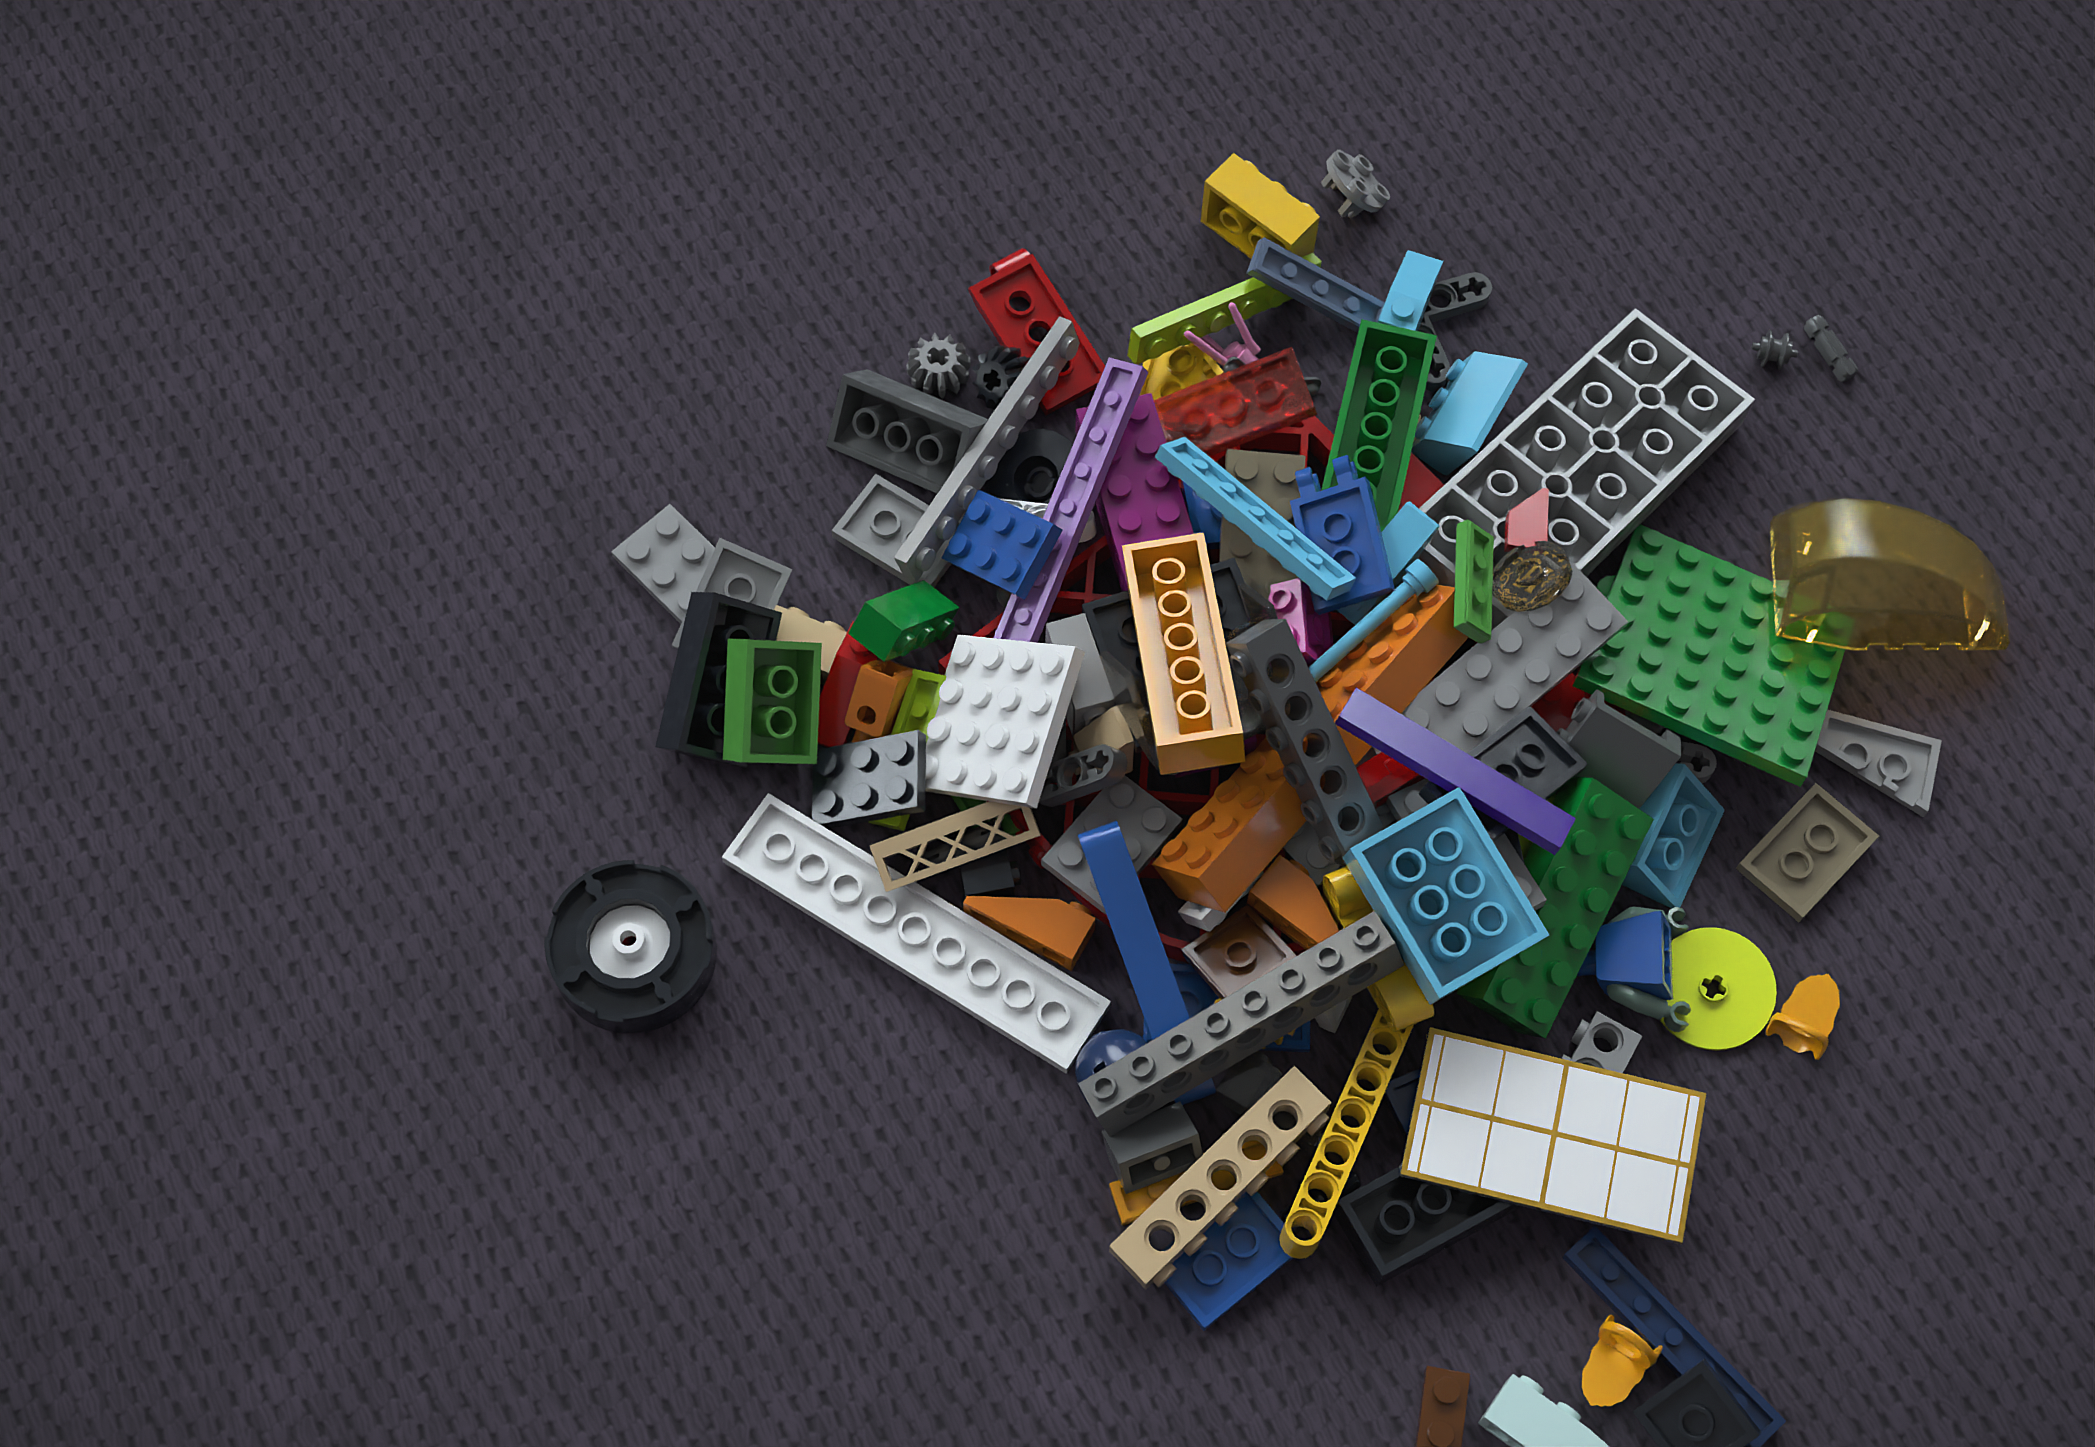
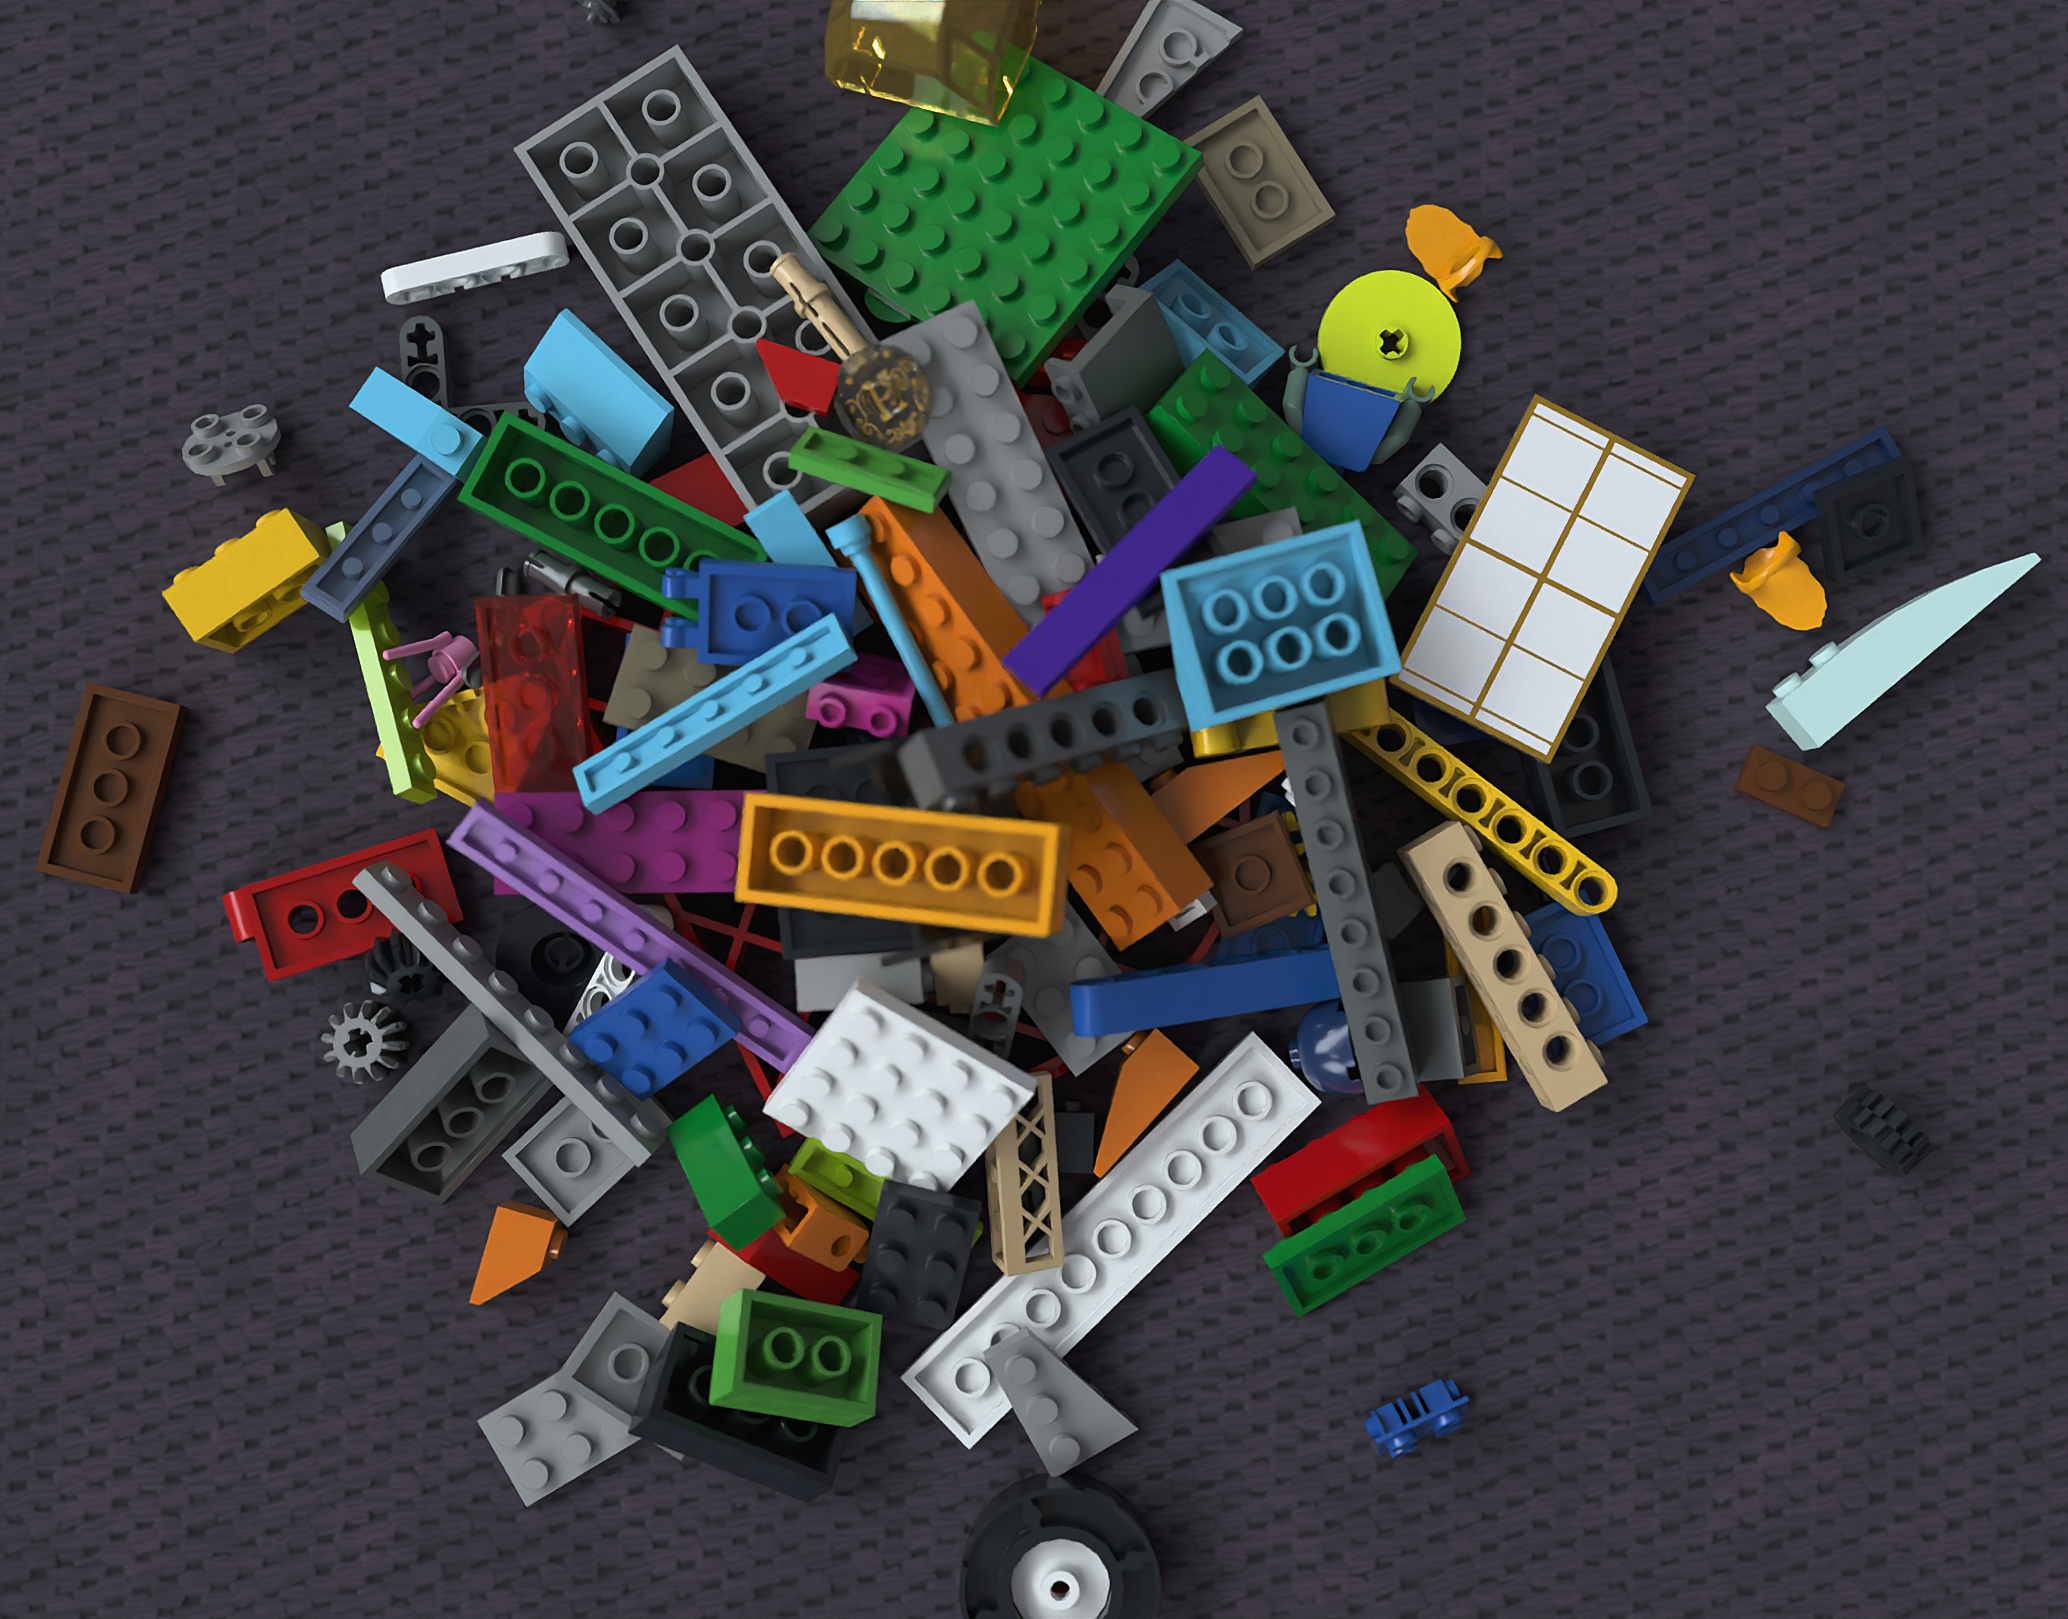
camera: 75 degrees left, 20 degrees up
(769, 914) = (1054, 1404): none -> light grey wing
(805, 499) = (517, 1247): none -> orange slope
(818, 1206) = (1442, 1418): none -> blue hinge
(965, 1125) = (1365, 1235): none -> green plate
(1012, 1117) = (1356, 1158): none -> red slope
(1081, 165) = (111, 788): none -> reddish brown plate
(1326, 420) = (572, 578): none -> dark grey pin
(1538, 309) = (474, 267): none -> white beam
(1589, 521) = (815, 302): none -> tan pin

